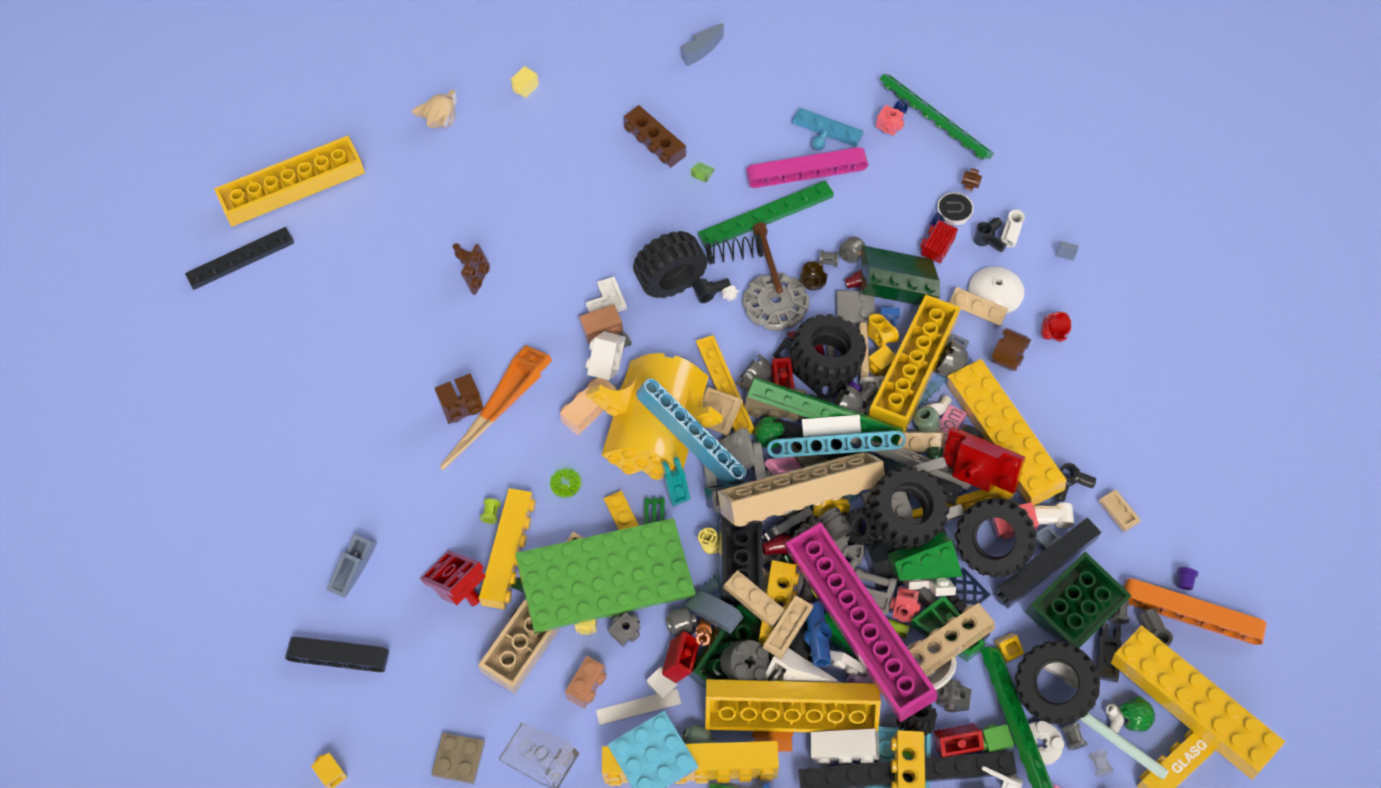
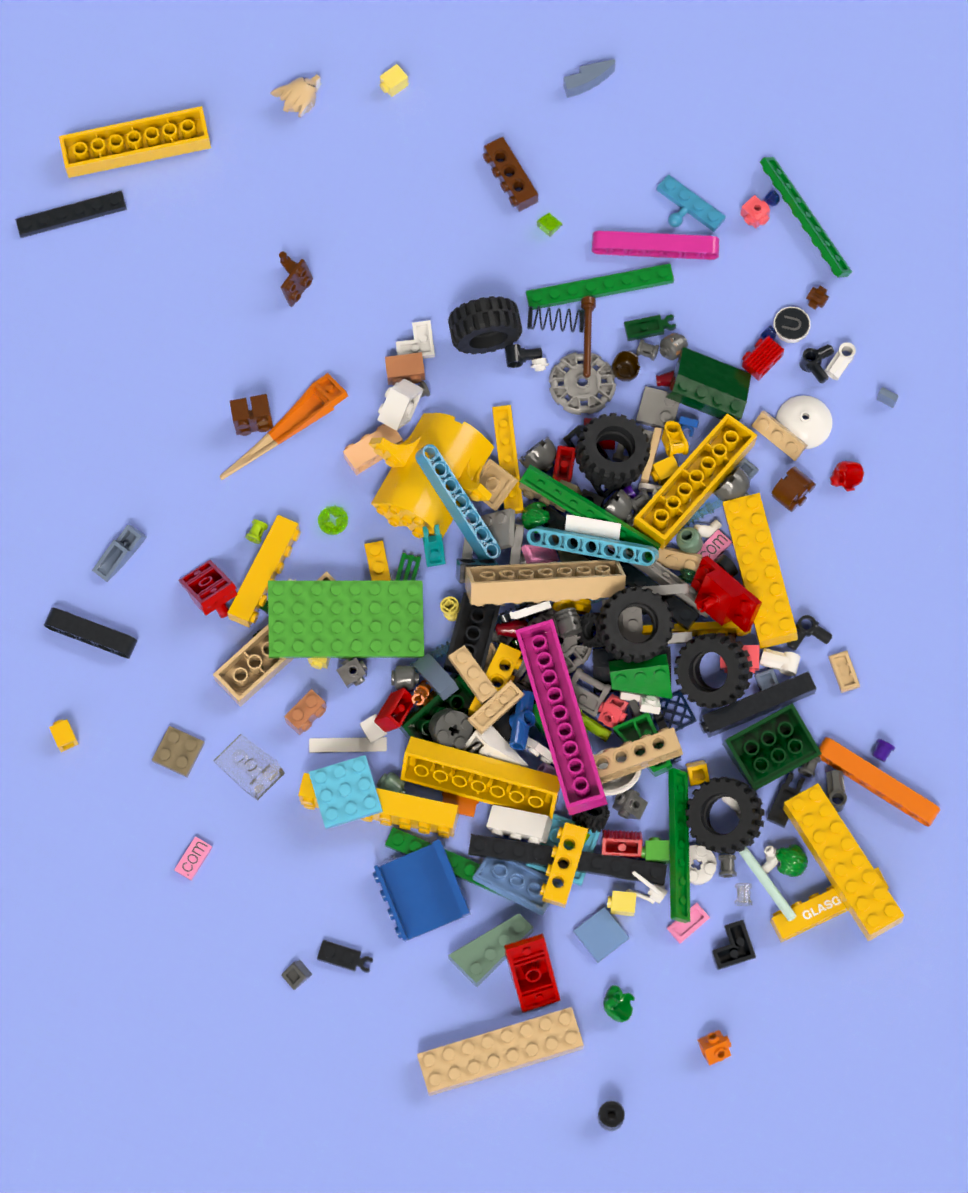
camera: 15 degrees right, 10 degrees up
(822, 238) = (648, 327): none -> dark green plate

